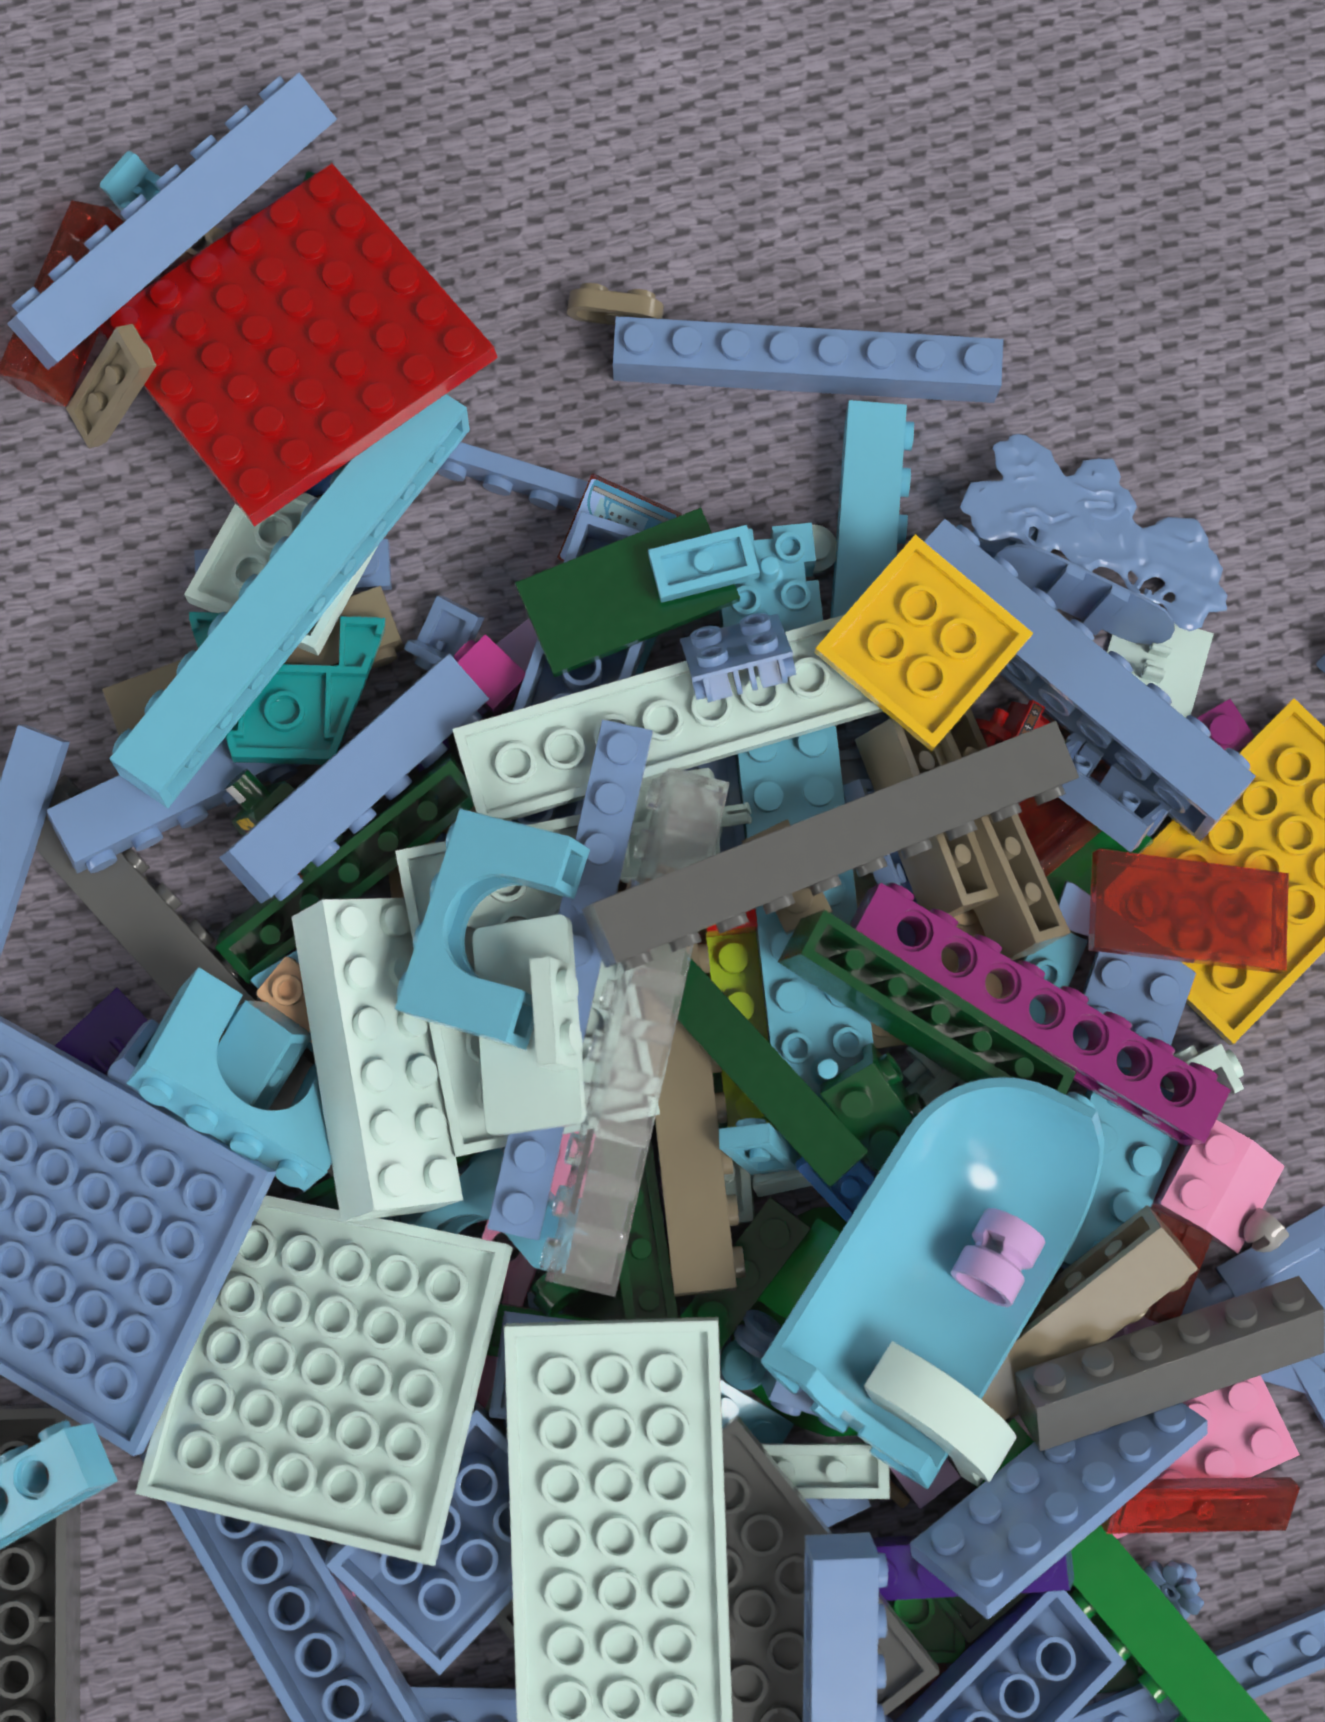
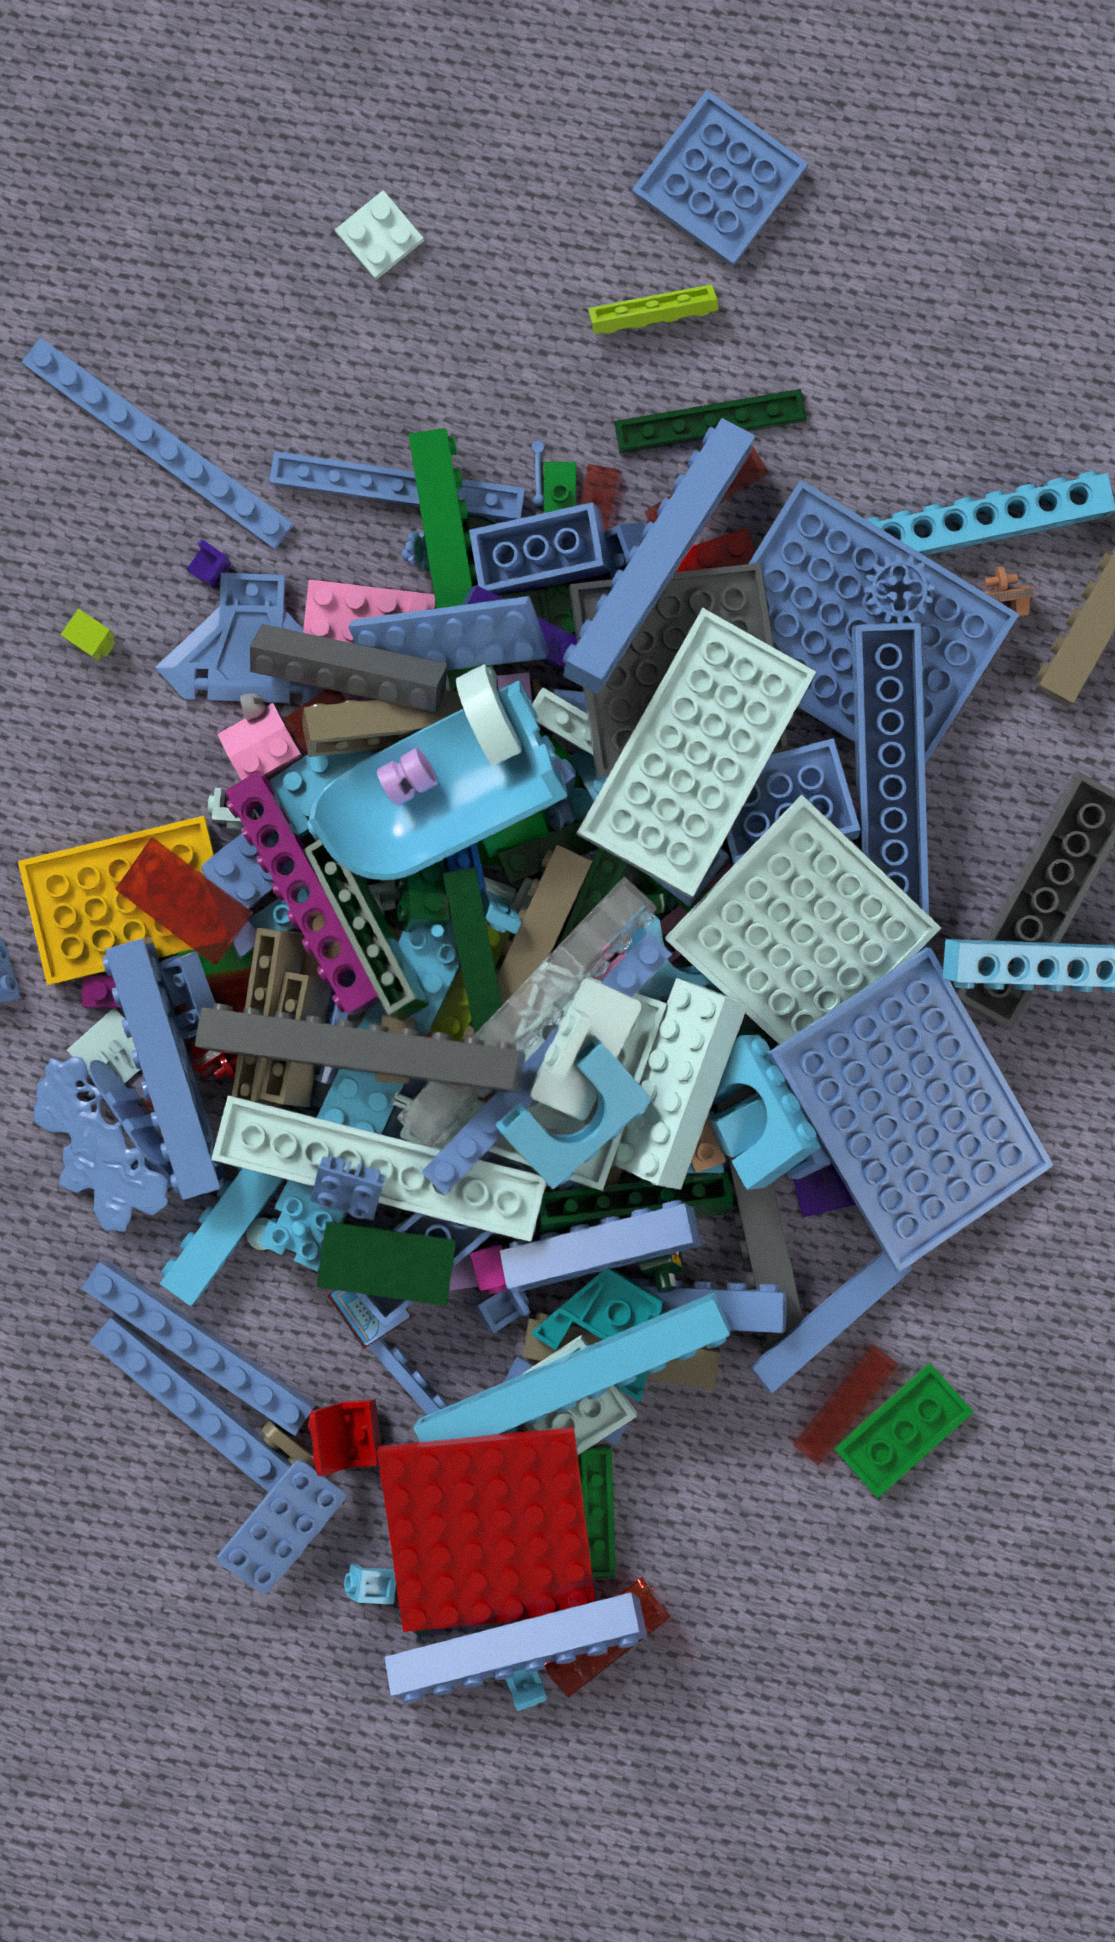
camera: 140 degrees left, 5 degrees up
(111, 385) = (608, 1566): dark tan plate -> none
(177, 468) = (599, 1508): none -> green tile
(409, 197) = (370, 1585): none -> medium azure bracket
(552, 356) = (345, 1436): none -> red bracket
(562, 195) = (281, 1527): none -> medium blue bracket
(703, 563) = (335, 1251): medium azure plate -> none
(754, 282) = (191, 1402): none -> medium blue brick
(923, 642) = (241, 1132): yellow plate -> none
(1207, 1506) = (375, 582): clear red tile -> none

